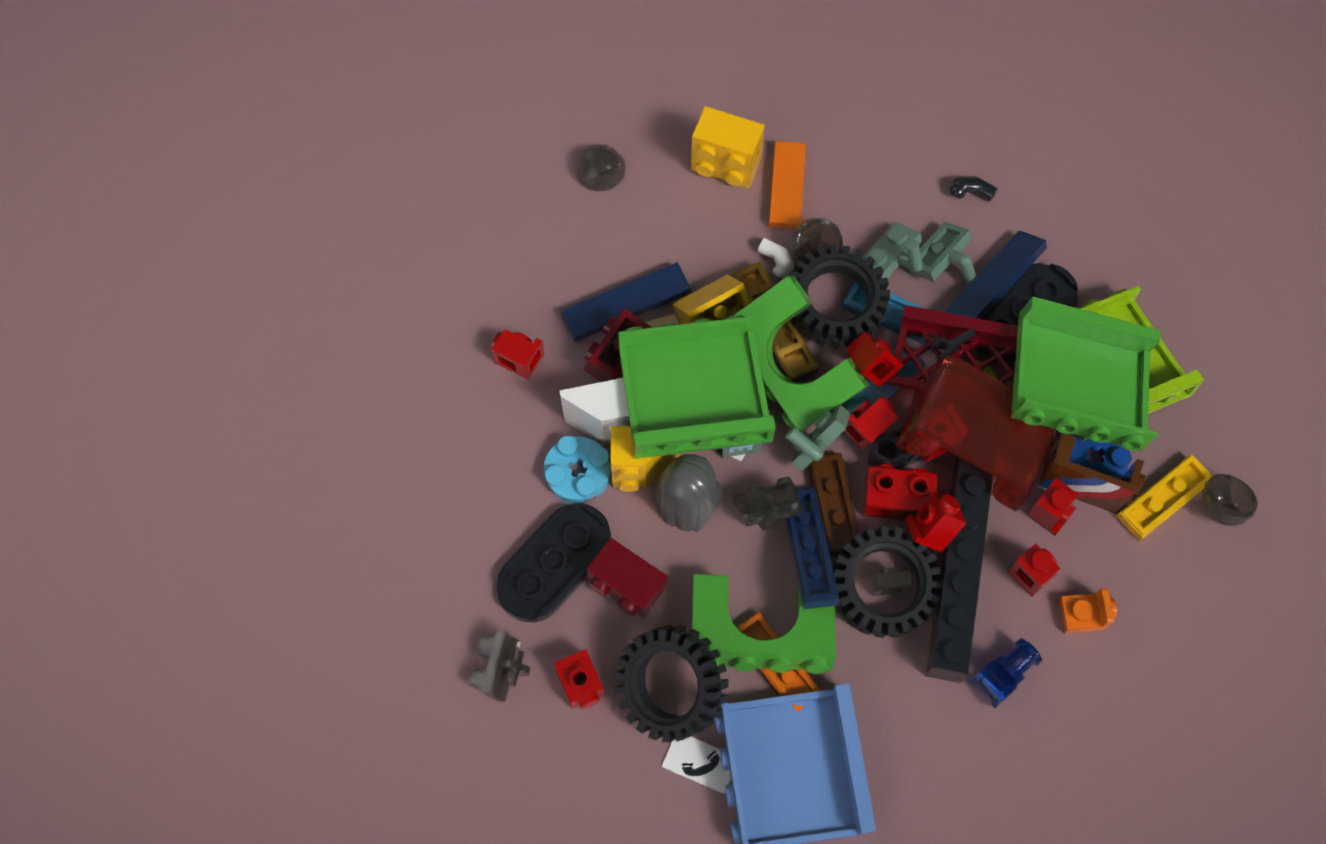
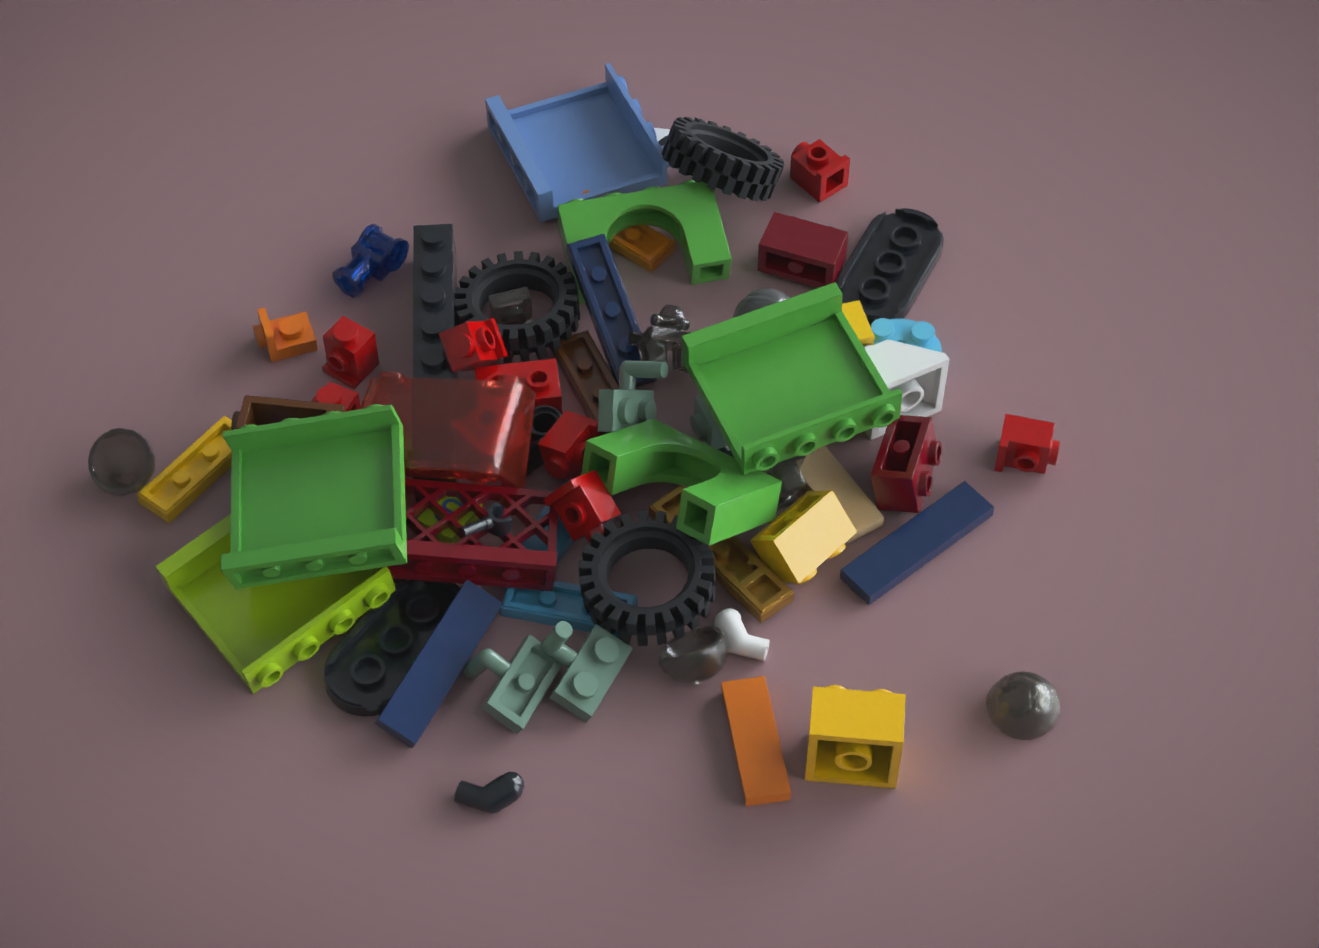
camera: 165 degrees right, 15 degrees down
(502, 668) = (905, 163): clear smoke hips -> none

